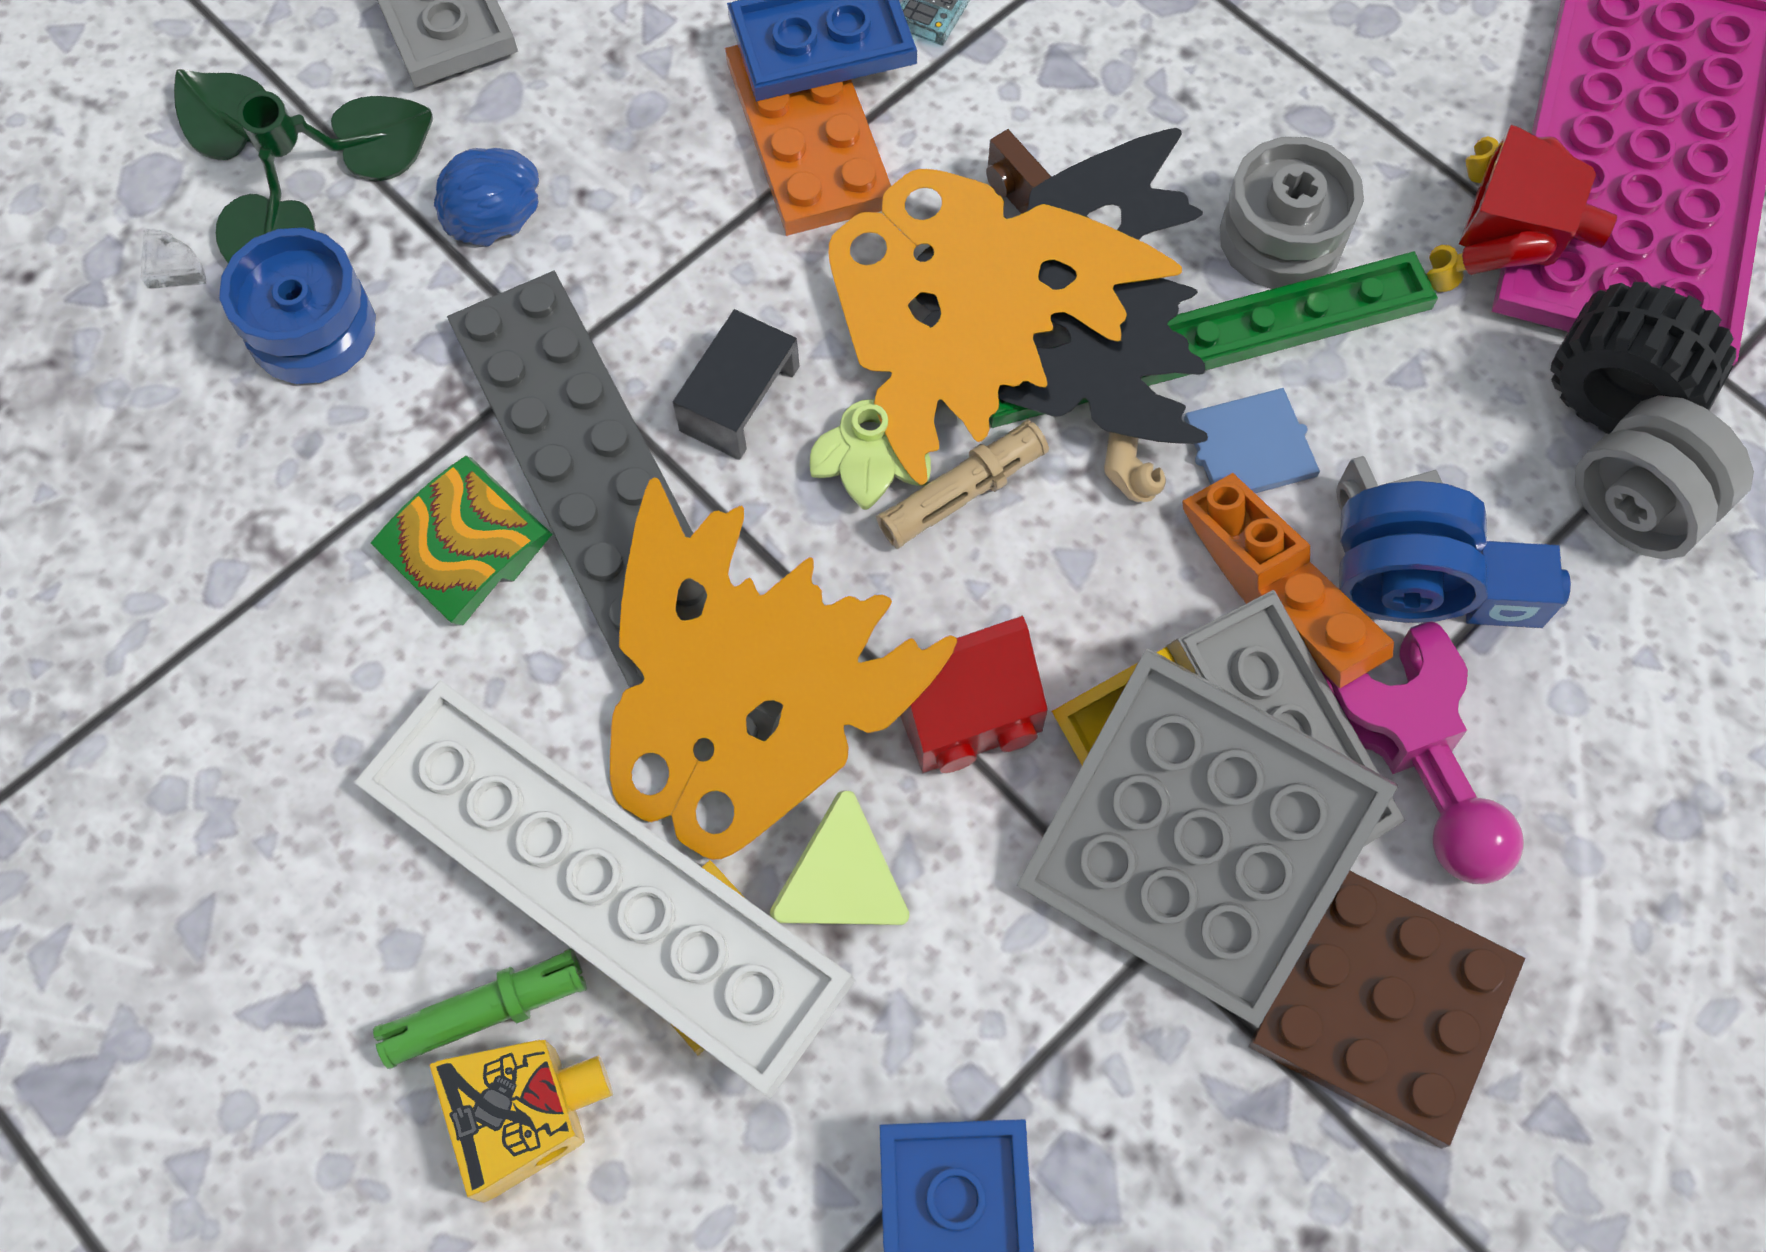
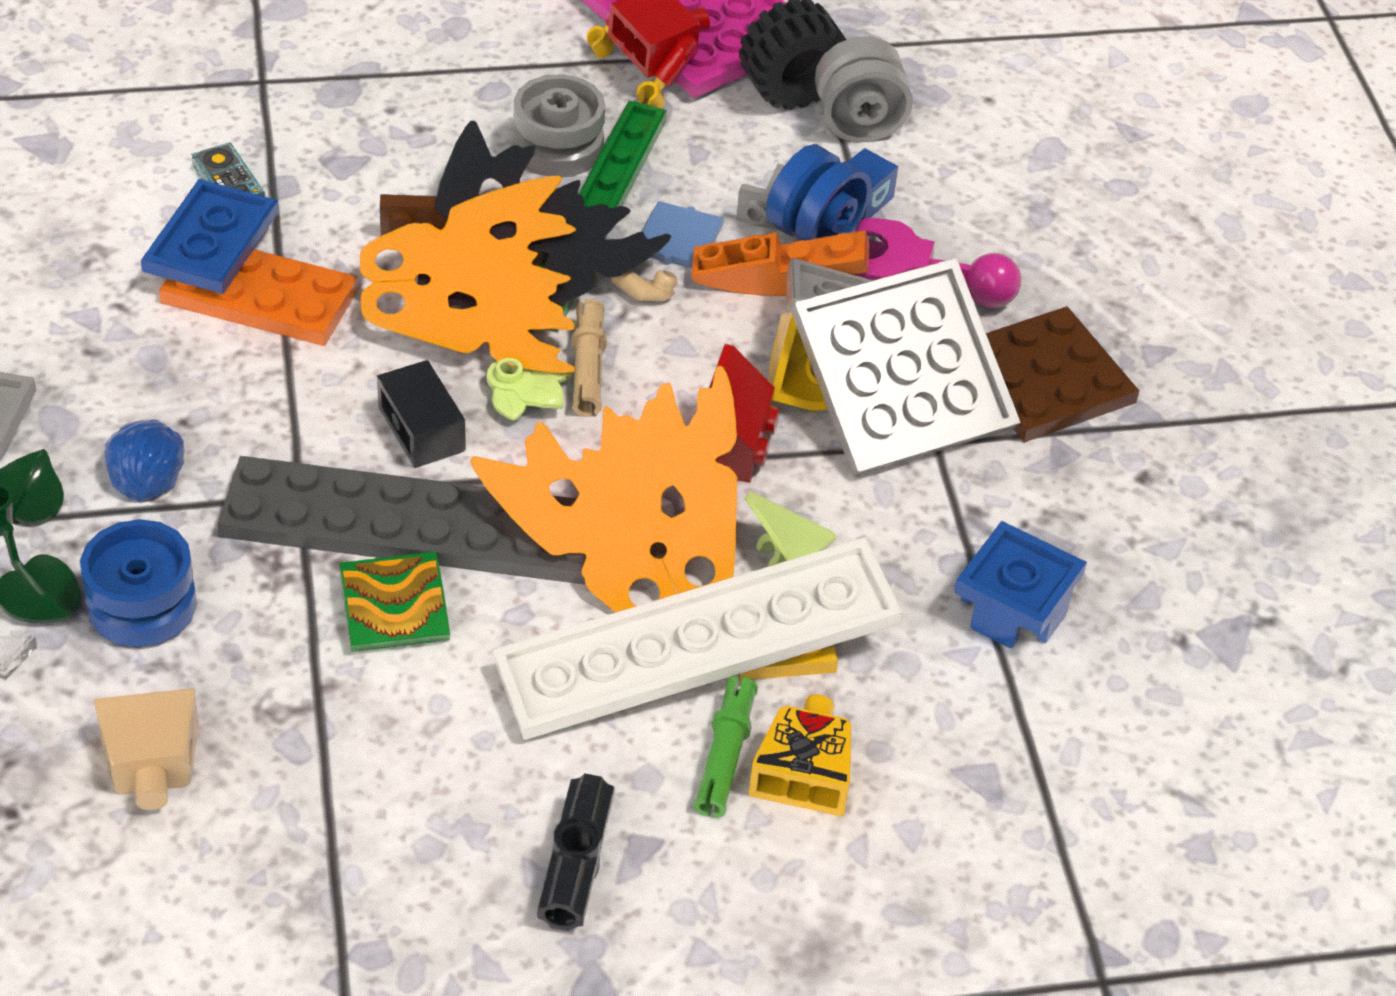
camera: 60 degrees left, 20 degrees down
(115, 459) = (149, 742): none -> tan torso
(180, 962) = (569, 872): none -> black piece

